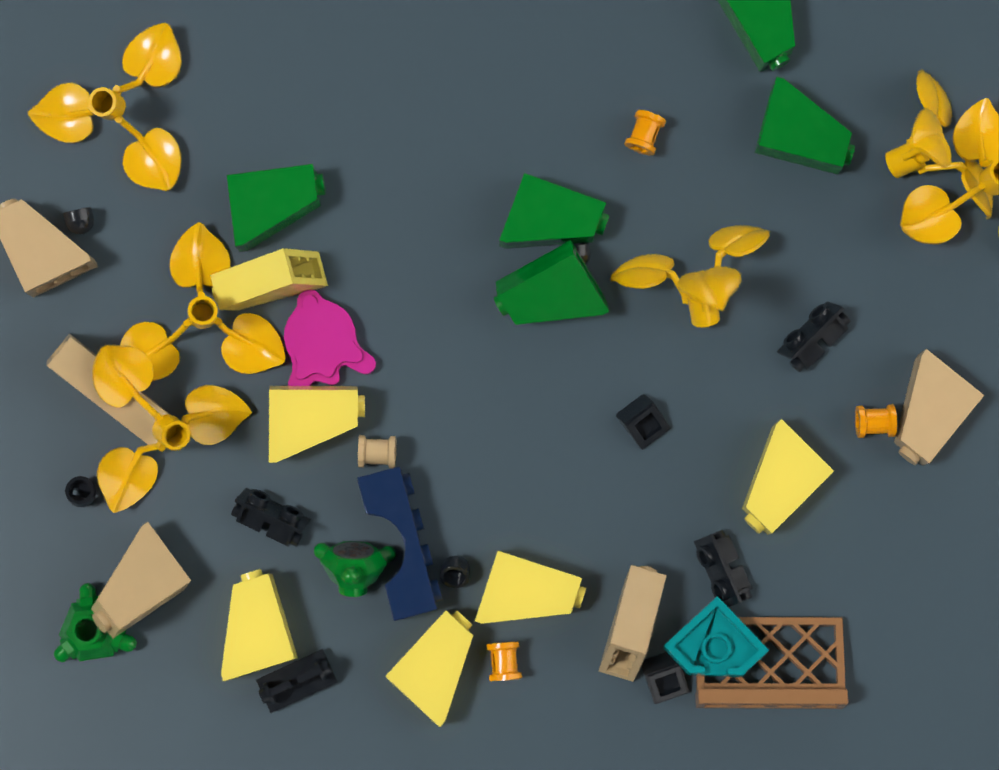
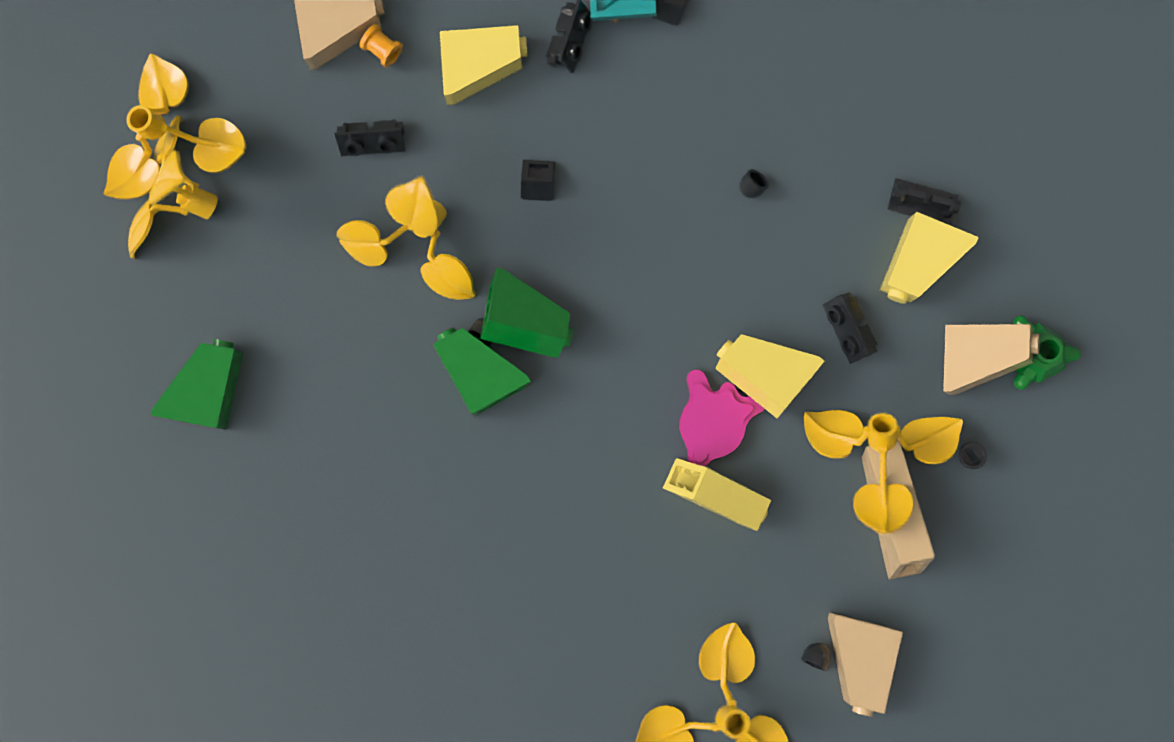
camera: 145 degrees left, 0 degrees up
(251, 342) = (764, 461): yellow plant -> none
(271, 201) = (668, 551): green slope -> none
(353, 565) = (820, 245): green rock -> none
(377, 451) = (739, 309): tan bush -> none
(411, 589) = (794, 197): dark blue arch -> none
(434, 665) = (821, 132): light yellow slope -> none
(504, 661) = (770, 97): light orange bush -> none
(527, 590) = (716, 128): light yellow slope -> none
(633, 623) = (661, 48): tan slope -> none
(645, 132) = (360, 375): light orange bush -> none
(802, 131) = (251, 283): green slope -> none

